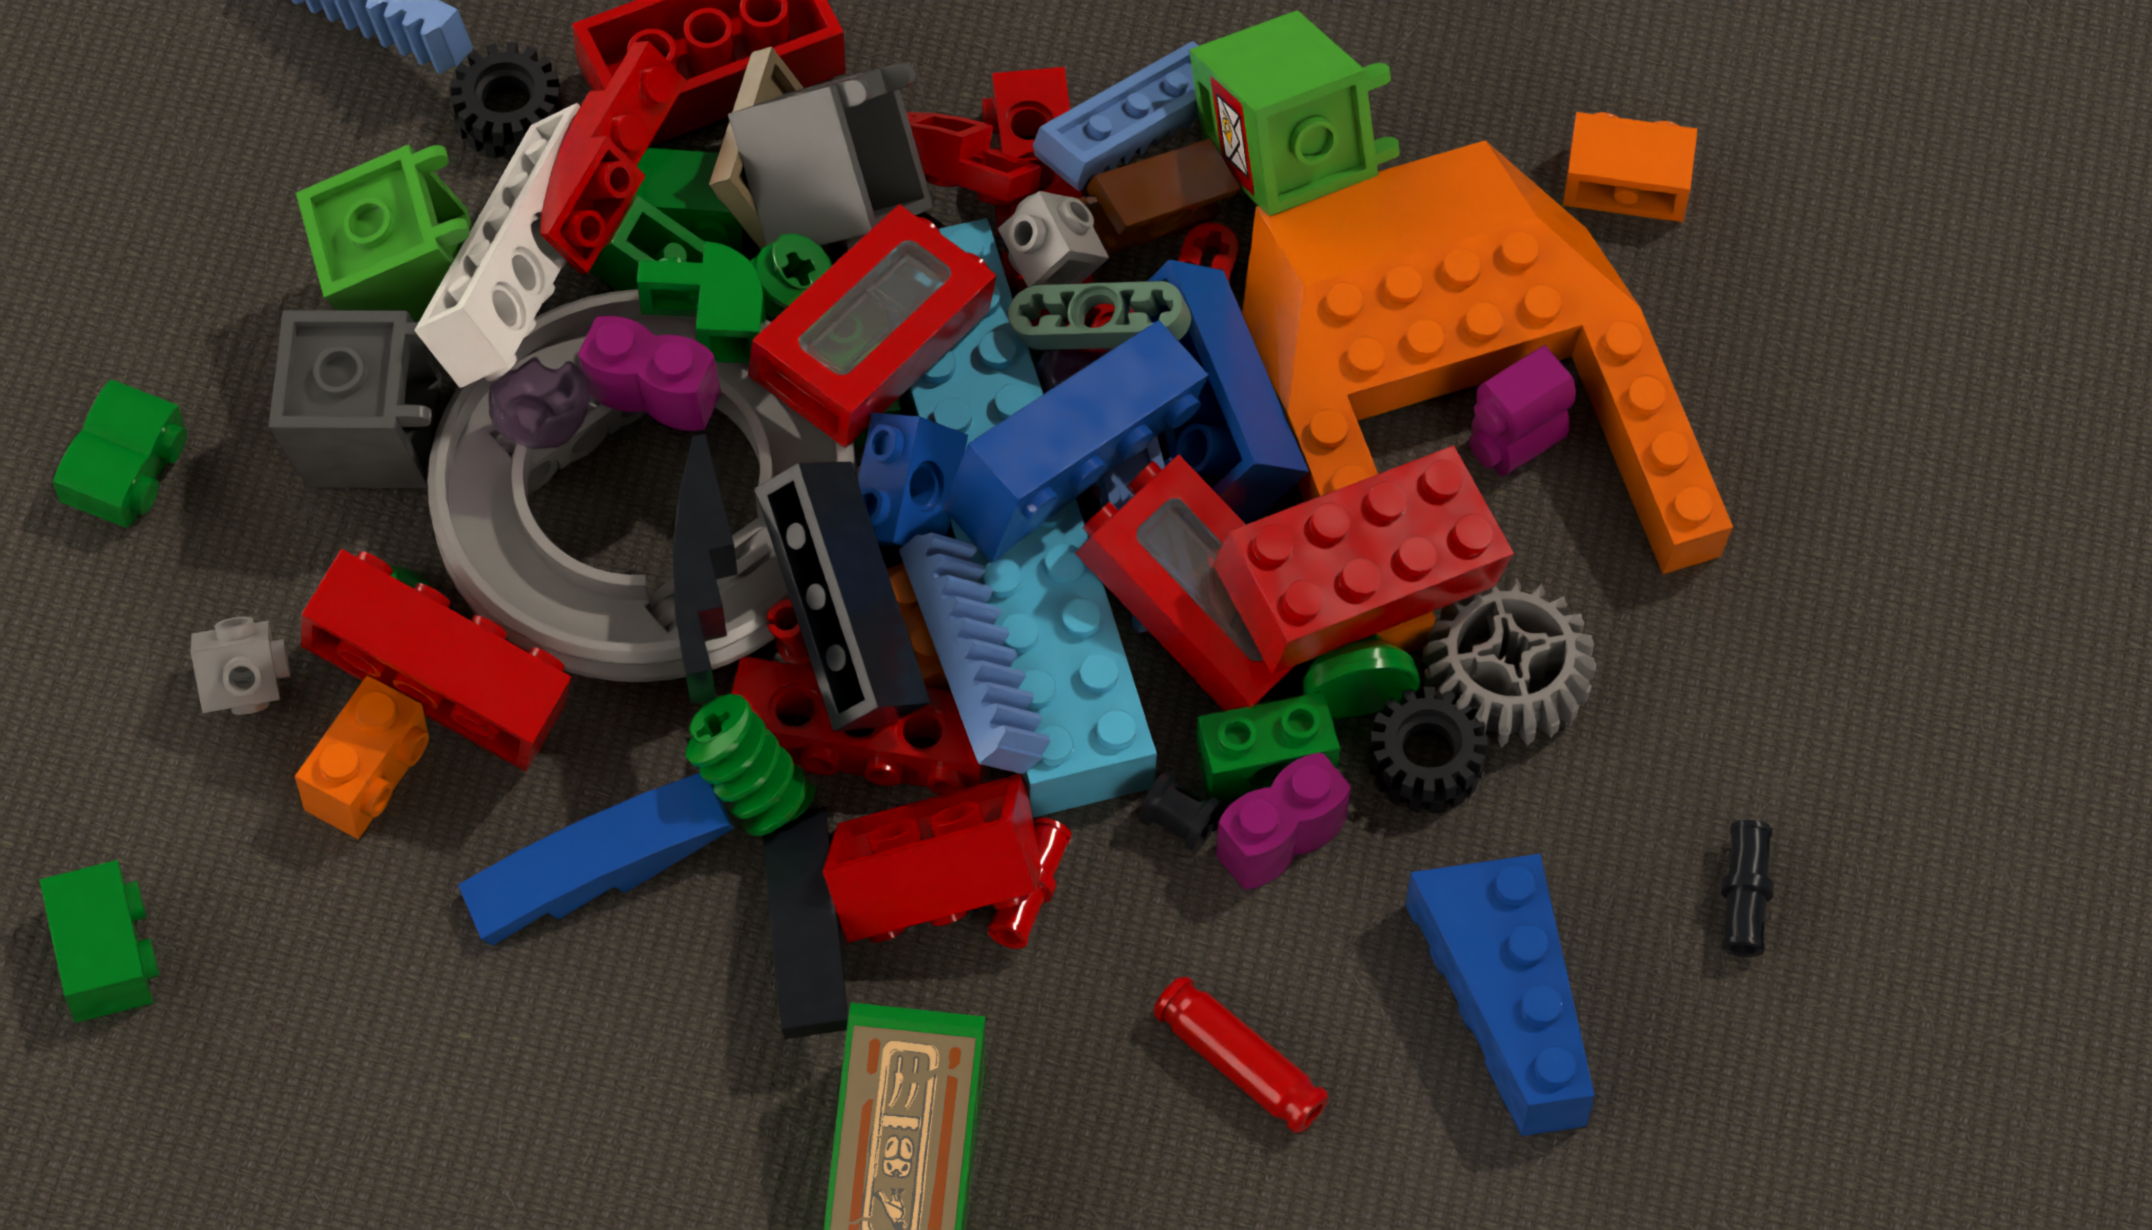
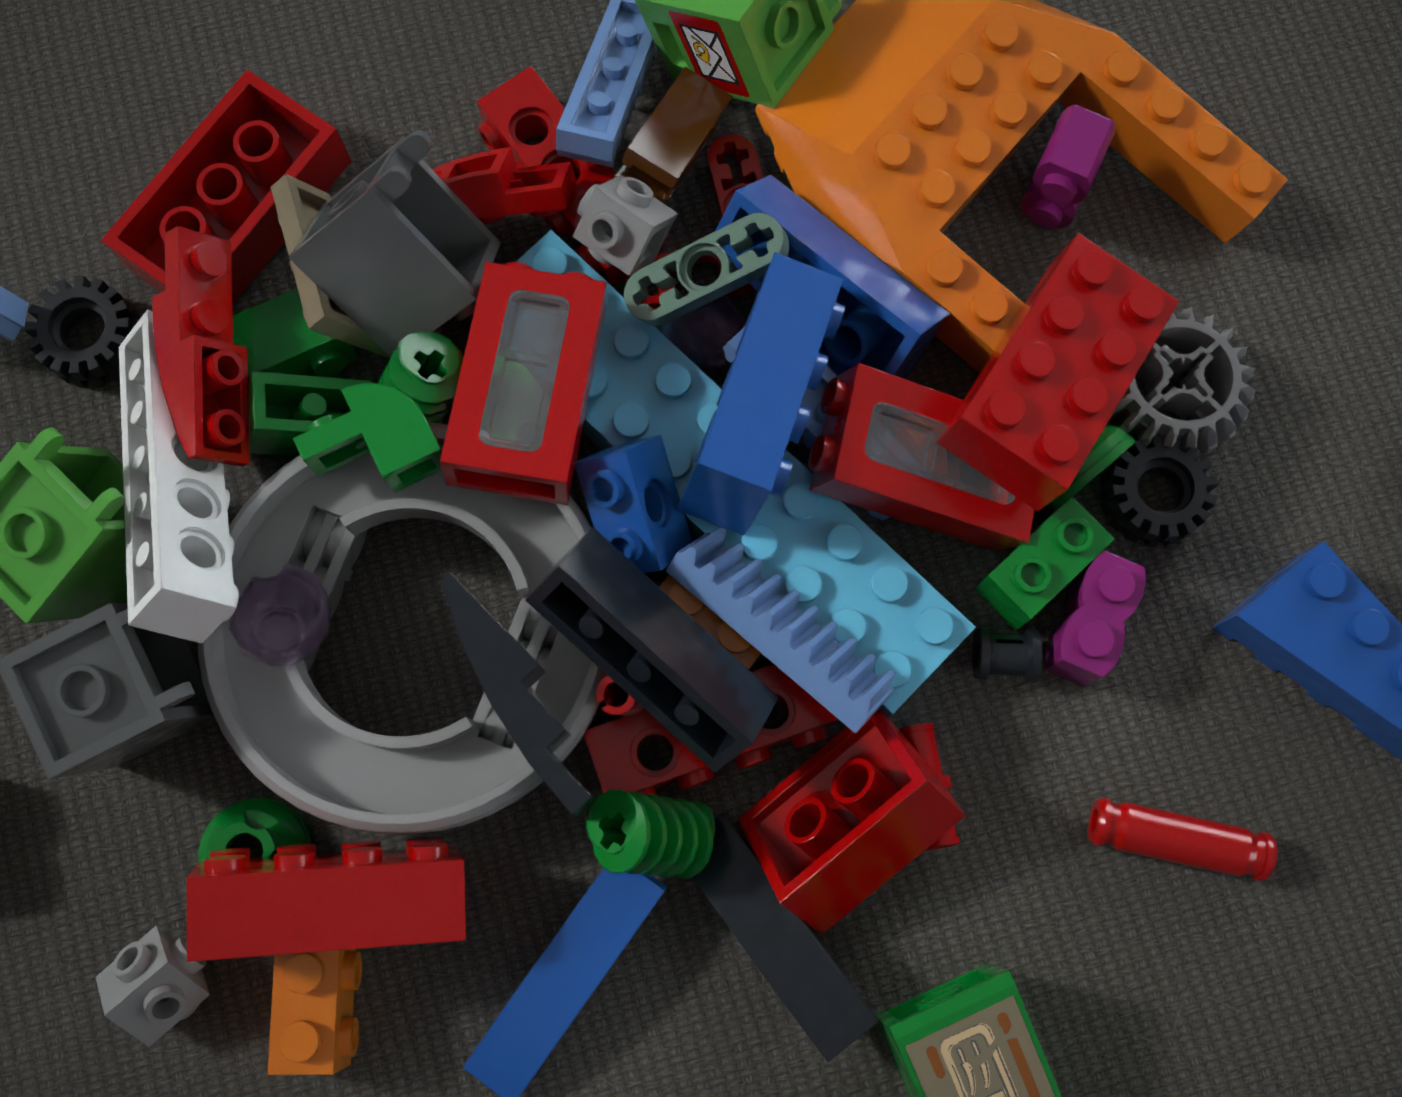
camera: 30 degrees left, 15 degrees up
(642, 372) = (347, 539): magenta brick -> none

